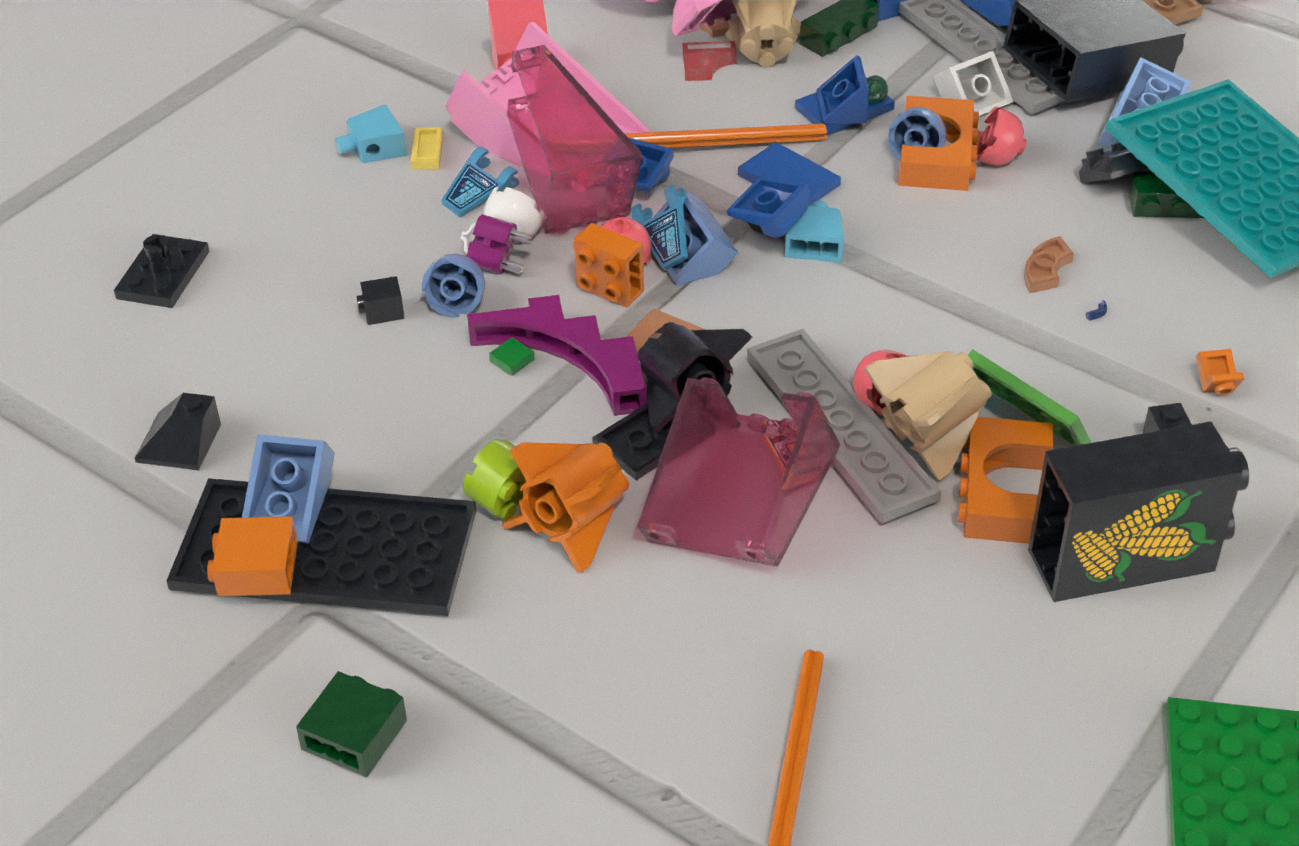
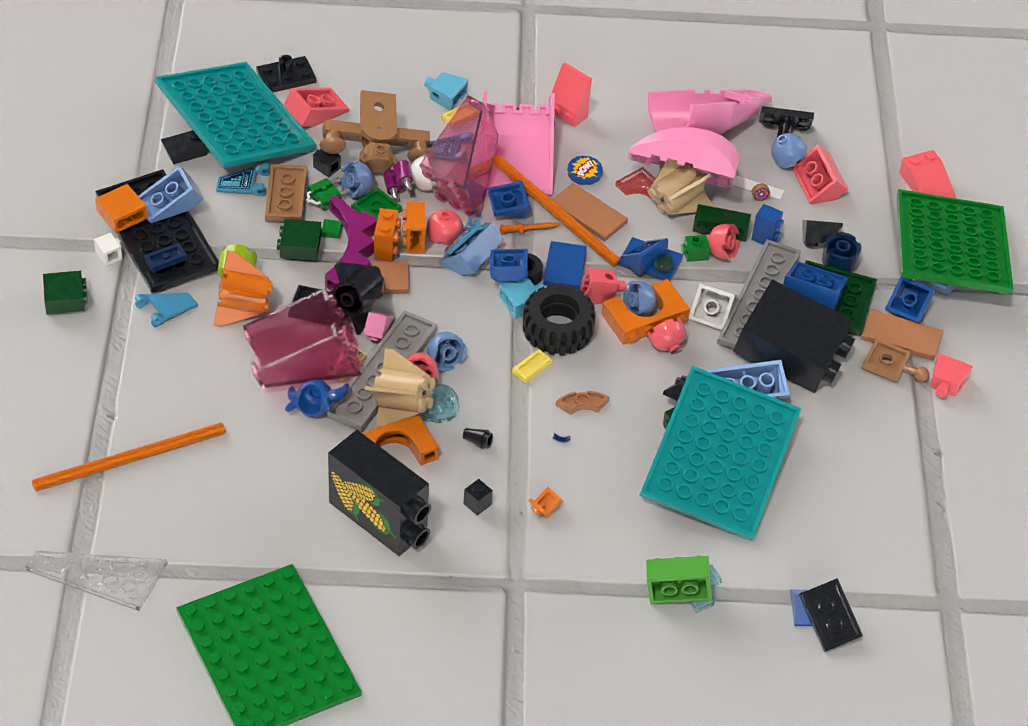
camera: 50 degrees right, 5 degrees up
(192, 345) = (235, 114): none -> teal plate
(261, 267) = (314, 105): none -> coral slope
(306, 623) = (108, 249): none -> white brick
(320, 406) = (243, 180): none -> flag
(398, 369) = (285, 192): none -> medium nougat plate
(403, 218) = (376, 133): none -> medium nougat piece
(408, 553) = (165, 257): none -> dark blue plate
(441, 330) = (323, 191): none -> green piece
(493, 602) = (166, 304): none -> dark azure flag
(513, 289) = (374, 201): none -> green tile
(513, 391) = (299, 239): none -> dark green brick
(596, 291) = (387, 235): none -> orange brick
(638, 89) = (584, 170): none -> tile
(687, 181) = (521, 227): none -> orange sword
(717, 112) = (590, 212): none -> nougat tile
(756, 386) = (378, 325): none -> bright pink slope
(849, 513) = (314, 397): none -> blue piece
(858, 335) = (446, 350): none -> medium blue cylinder
(865, 149) = (601, 285): none -> coral torso
(870, 53) = (695, 248): none -> green brick
(876, 32) = (723, 241): none -> coral cylinder
(897, 213) = (562, 302): none -> black tyre
(945, 281) = (532, 366): none -> light yellow tile
(1029, 400) = (449, 431): bright green tile -> none
(1051, 380) = (480, 437): none -> black cone

